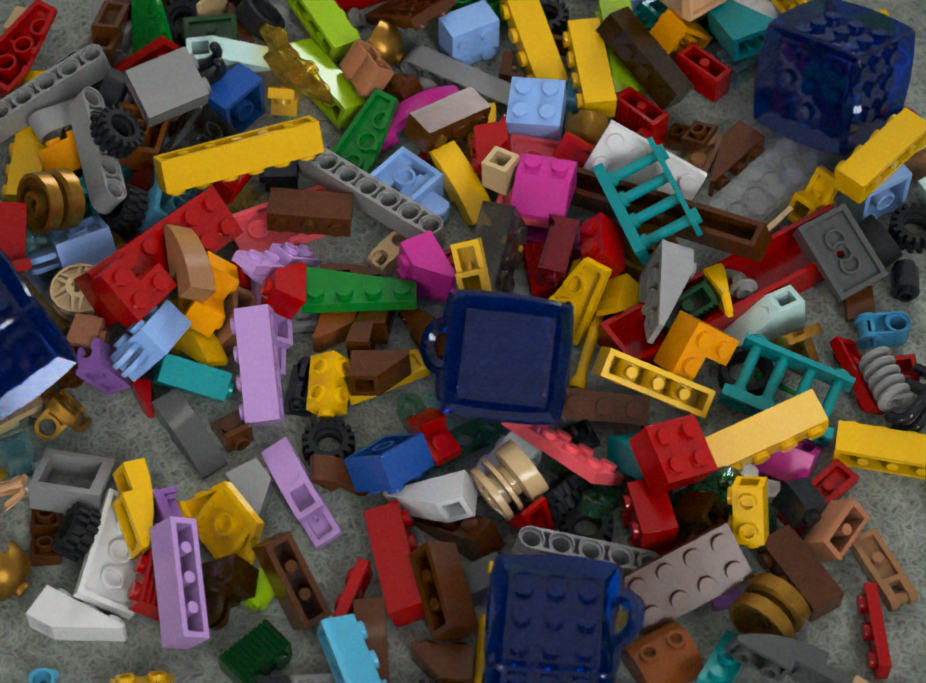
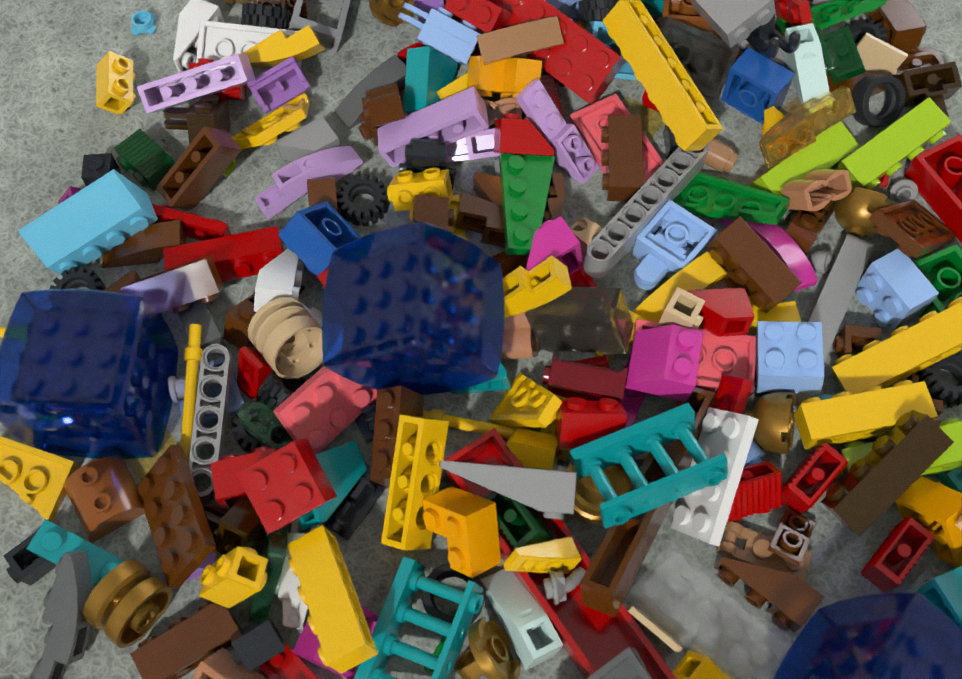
camera: 90 degrees right, 10 degrees up
(227, 404) = (383, 105): none -> reddish brown brick
(291, 371) = (425, 153): none -> black brick

